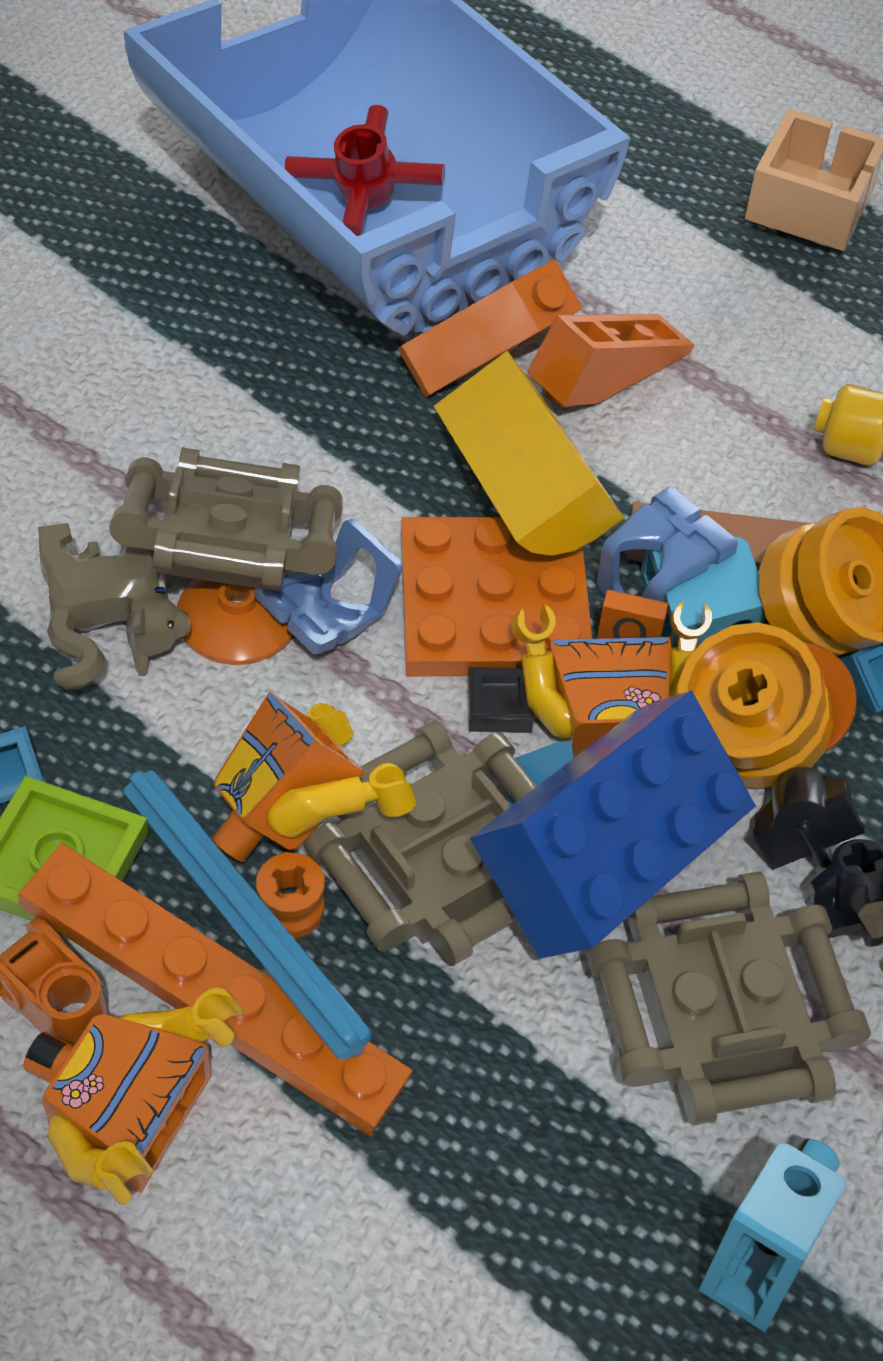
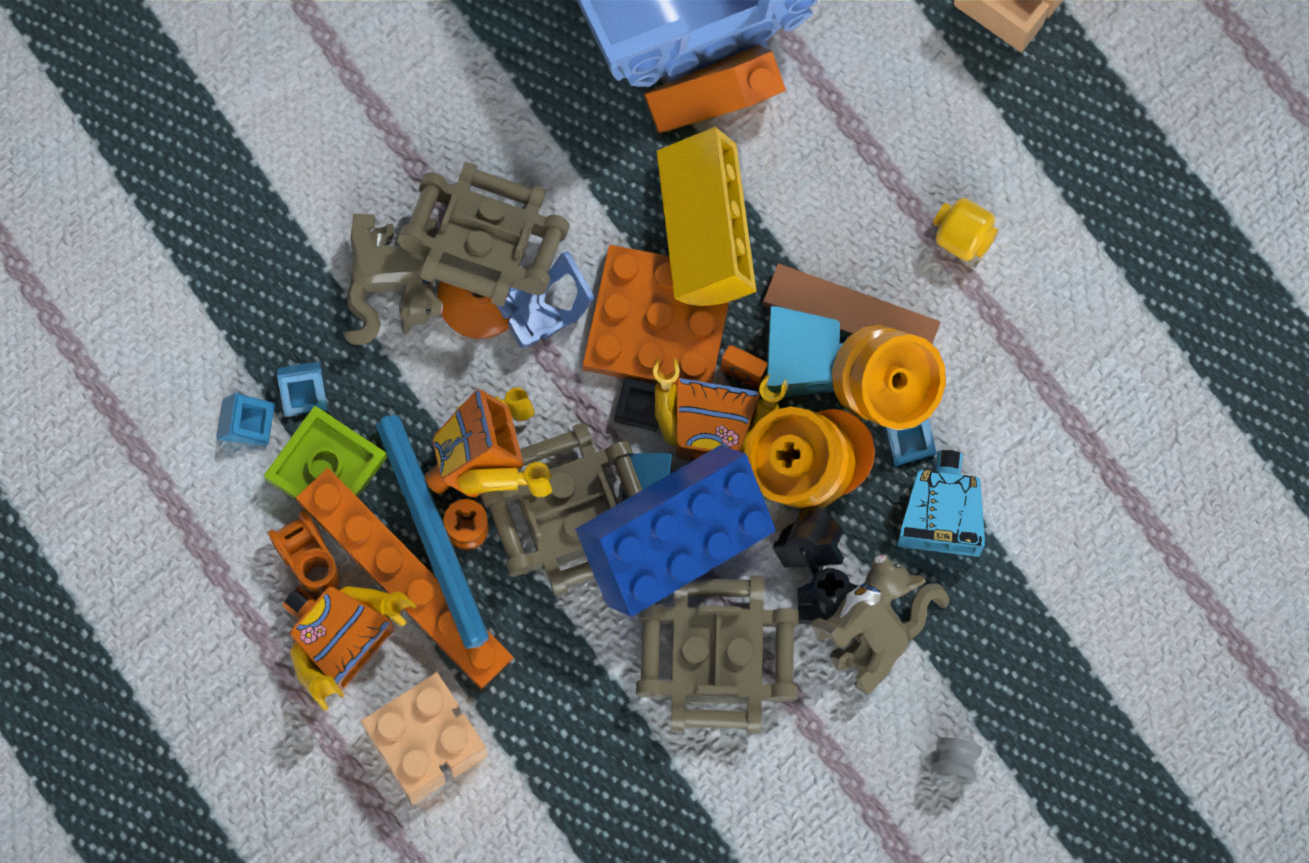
camera: 15 degrees right, 20 degrees up
(292, 1216) = (421, 735): none -> light nougat piece
(601, 355) = (799, 127): orange slope -> none
(676, 531) = (793, 314): medium blue piece -> none
(786, 1215) = (698, 803): medium azure torso -> none

